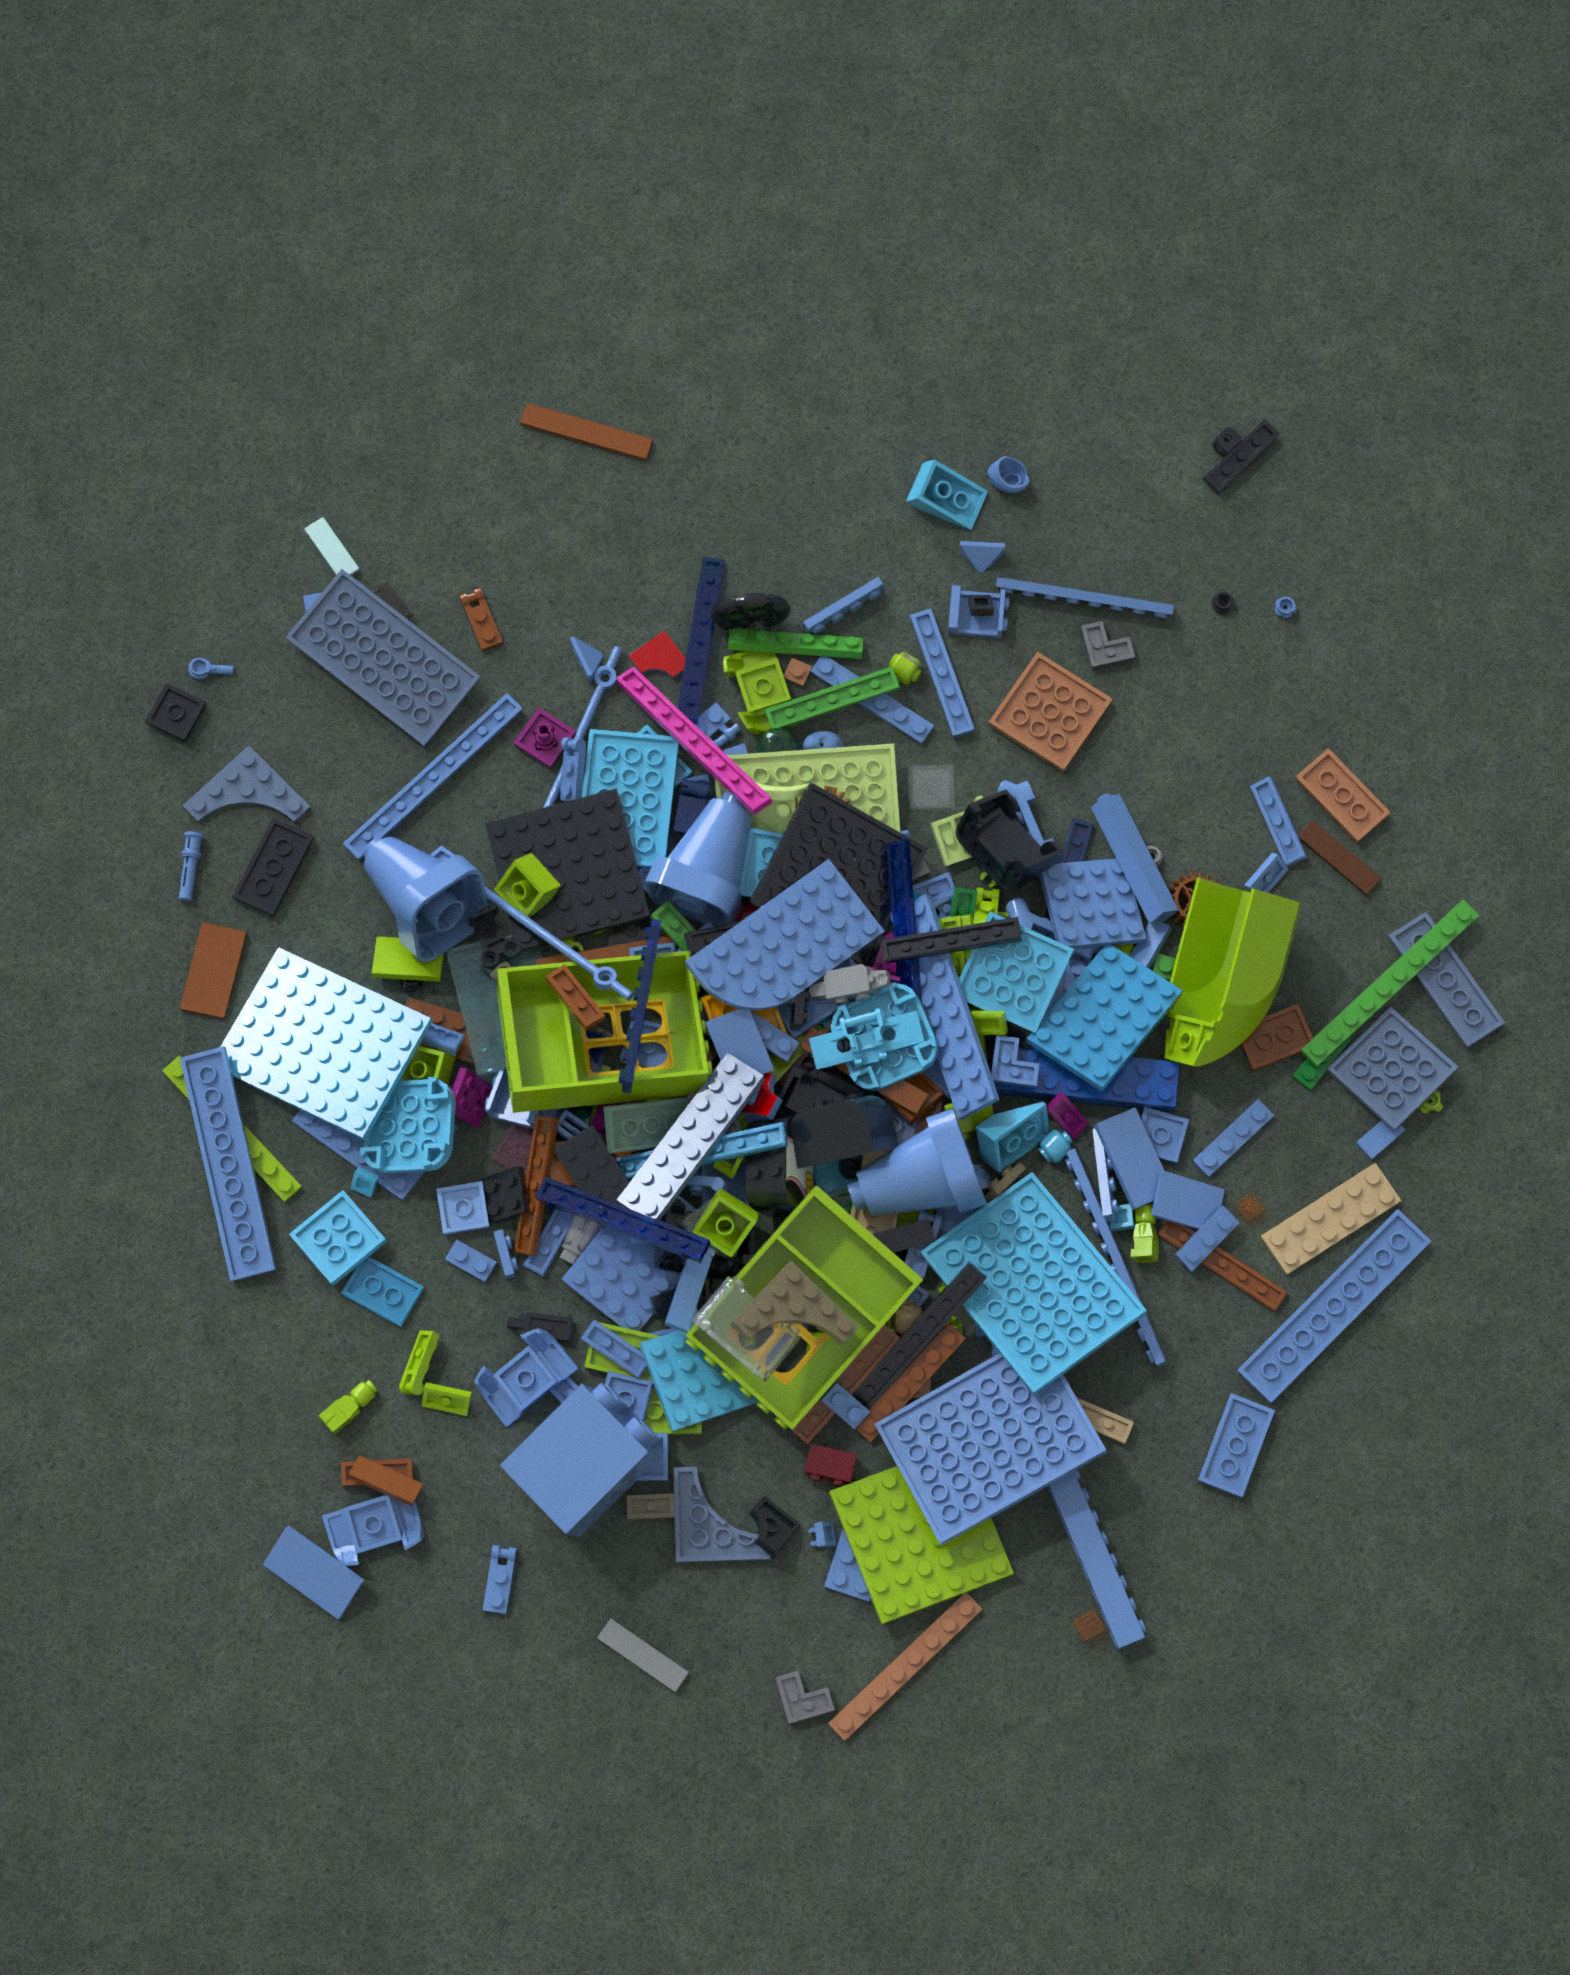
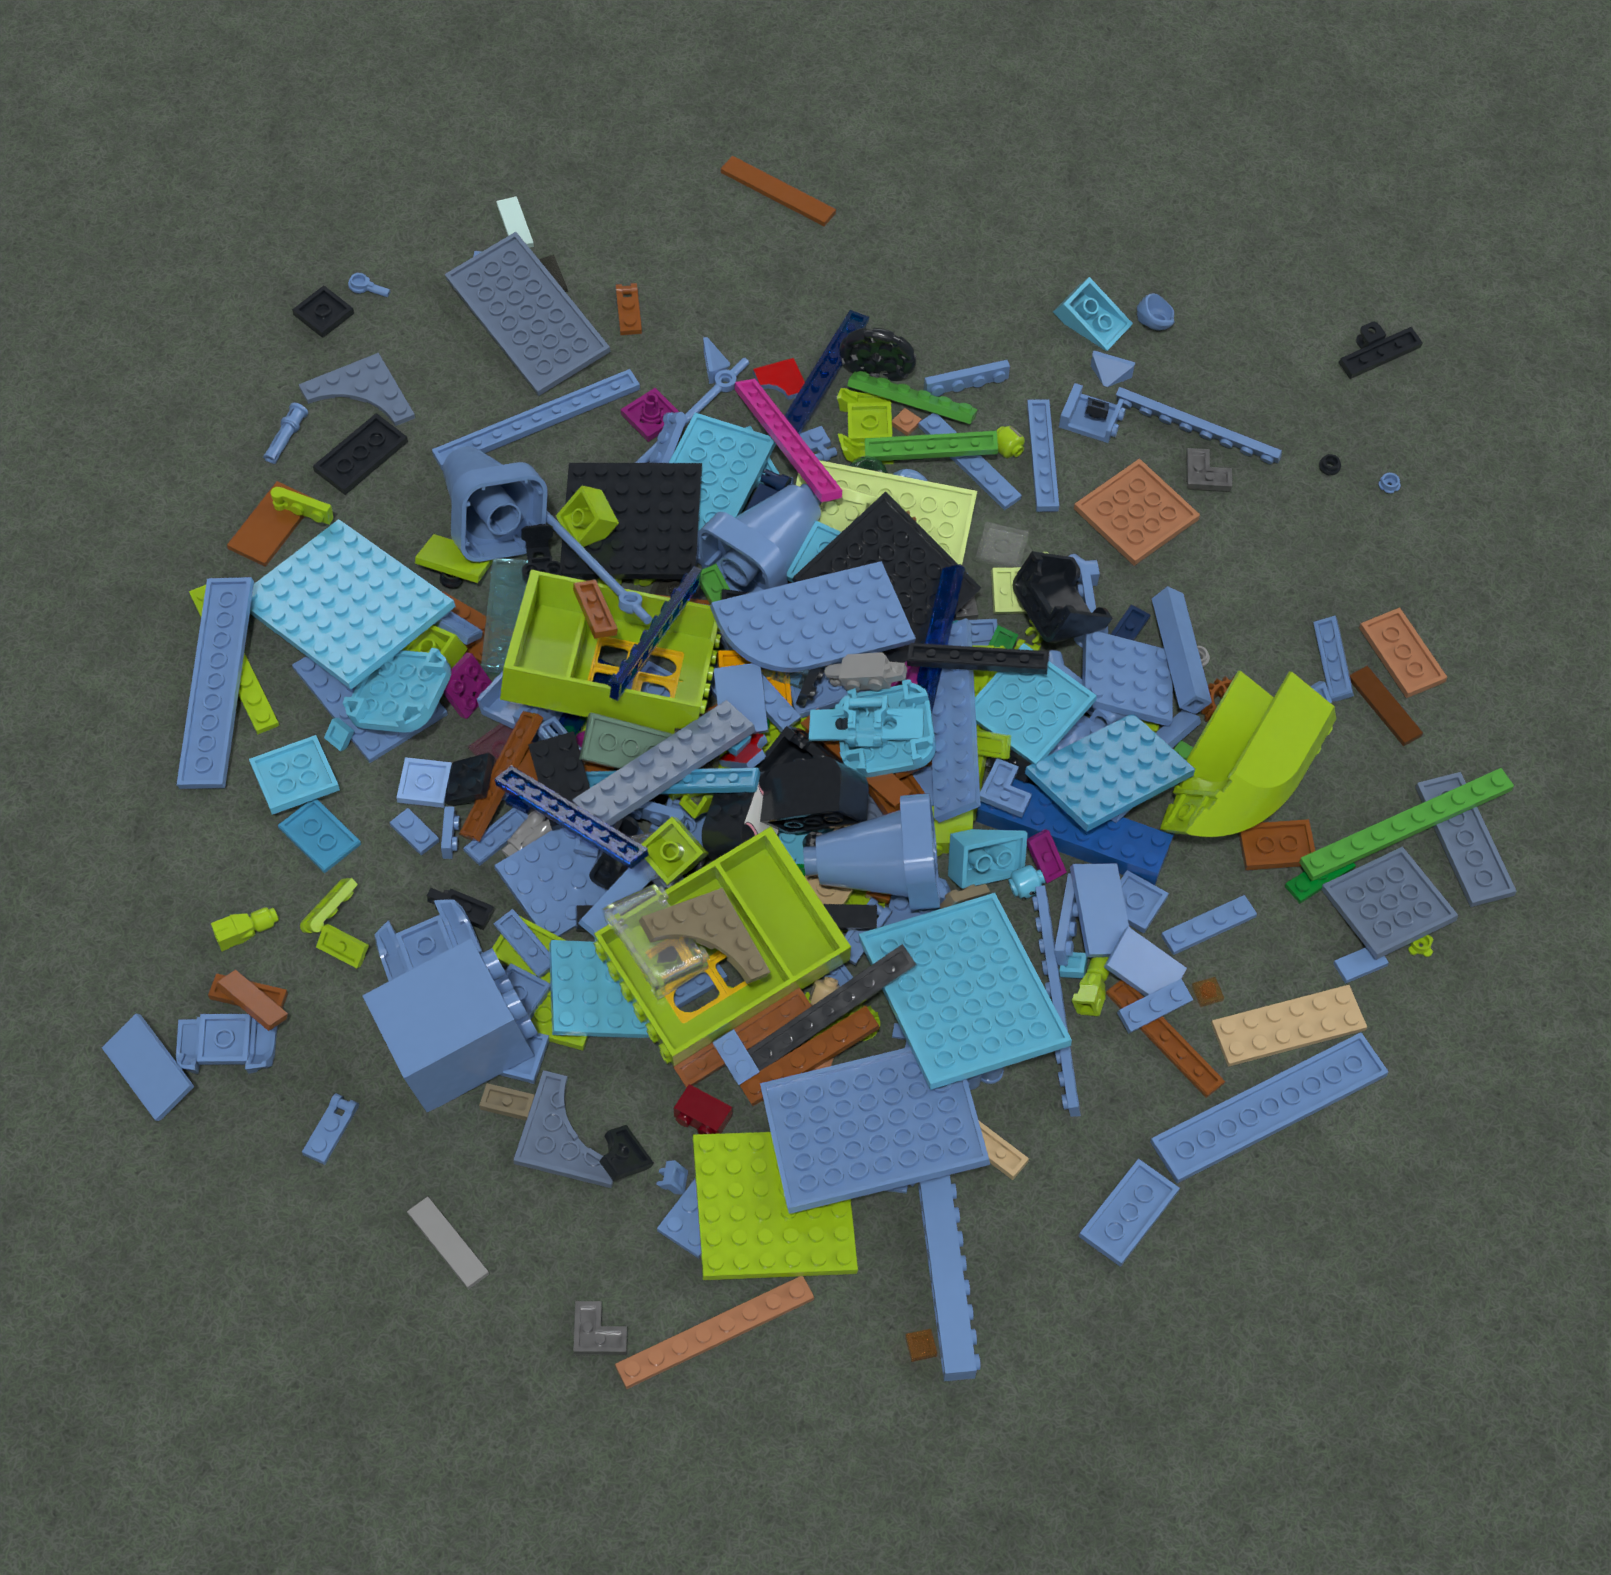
camera: 15 degrees right, 15 degrees down
(238, 947) = (301, 505): none -> lime plate

